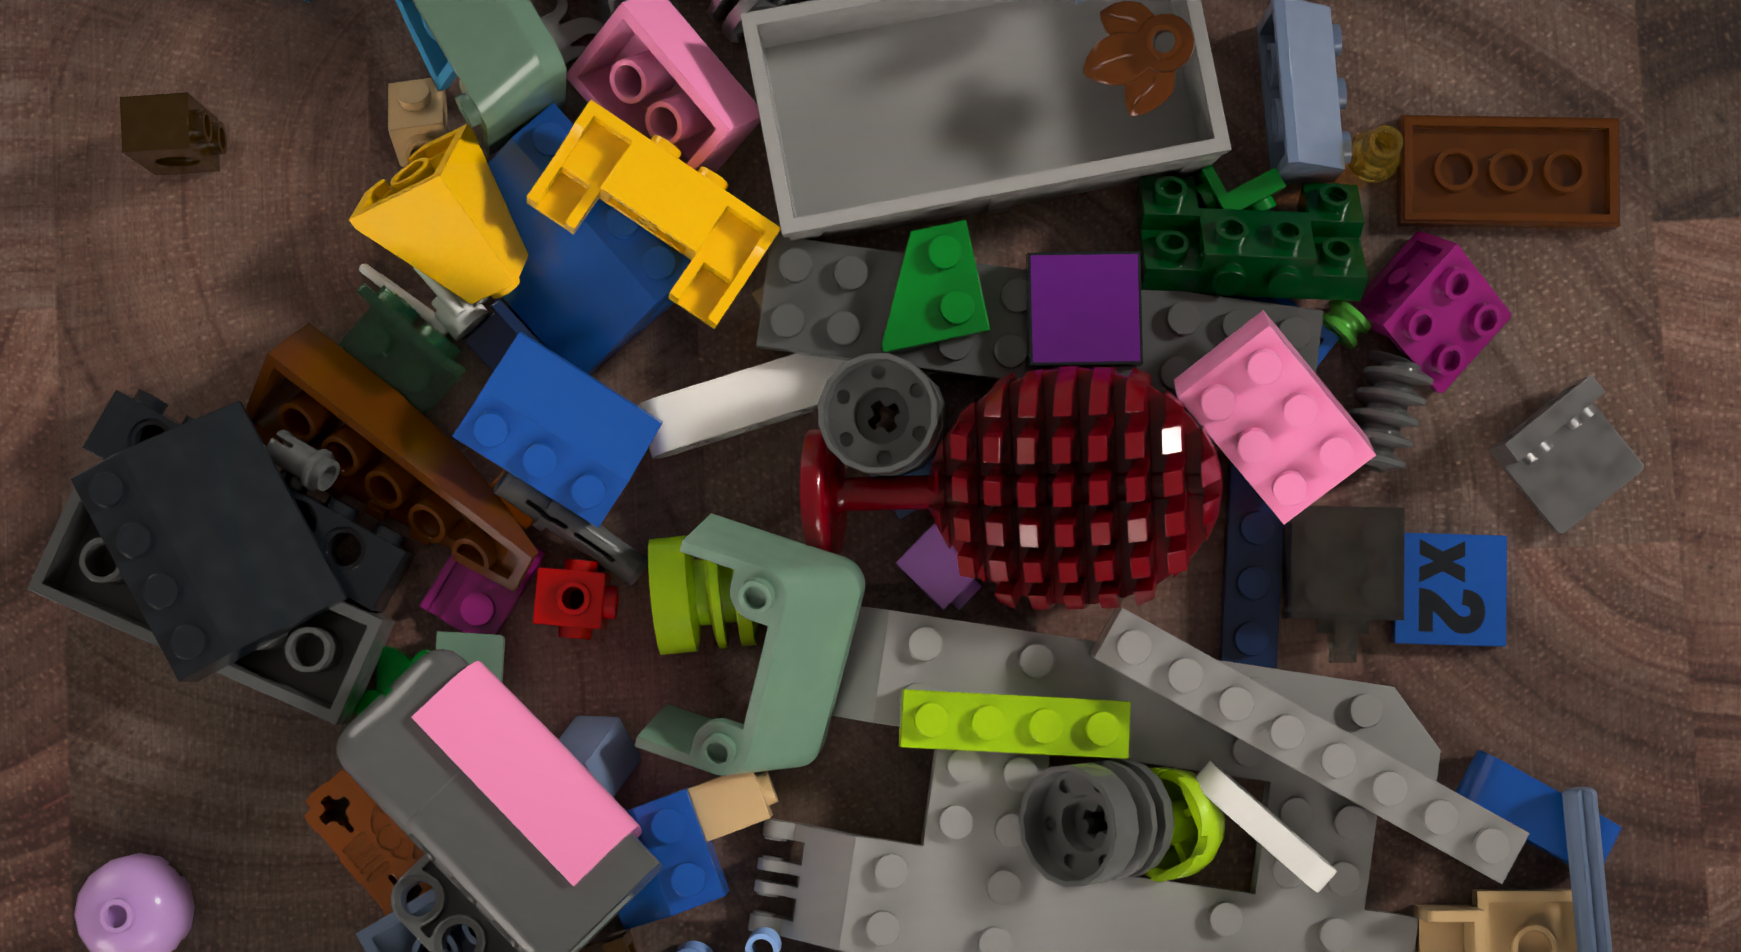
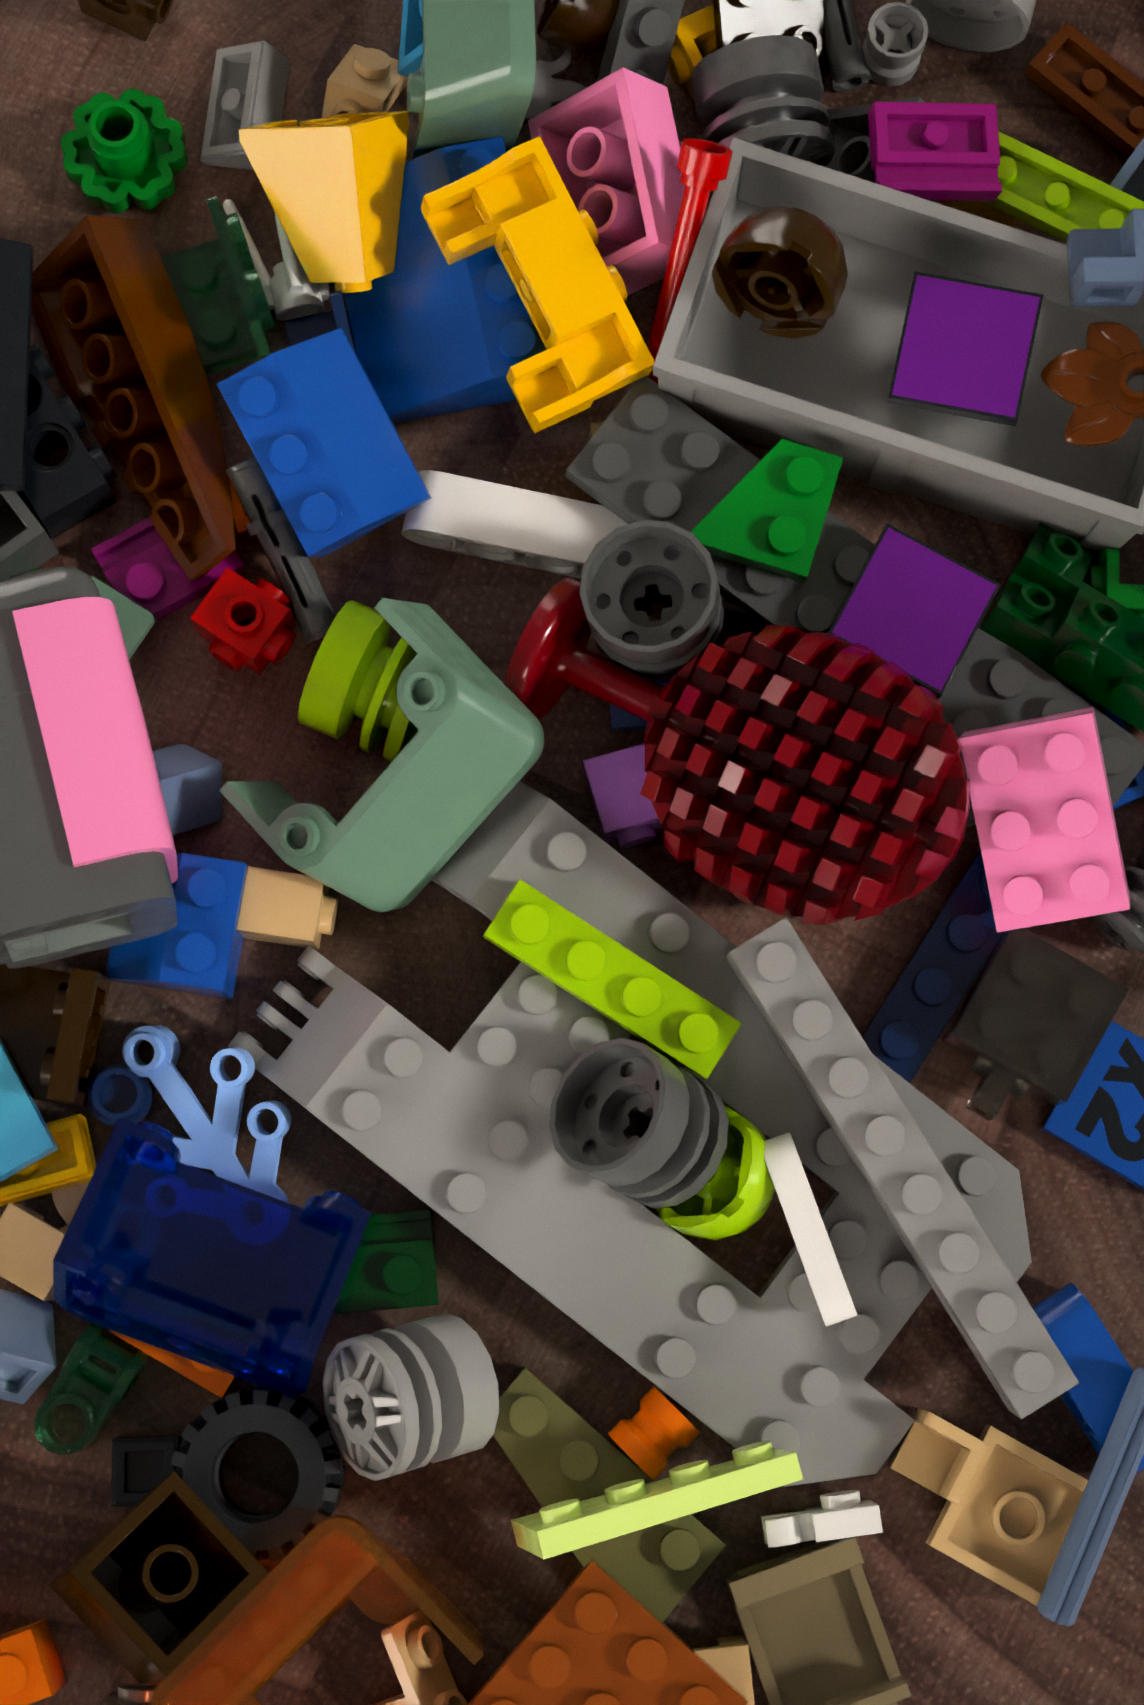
camera: 20 degrees right, 5 degrees down
(258, 273) = (124, 151): none -> green plant
(313, 466) = (65, 352): dark grey pin -> none
(327, 178) = (244, 92): none -> light grey slope
(733, 56) = (701, 168): none -> red piece
(842, 104) = (782, 271): none -> dark brown cylinder
(1015, 86) = (965, 348): none -> dark purple tile

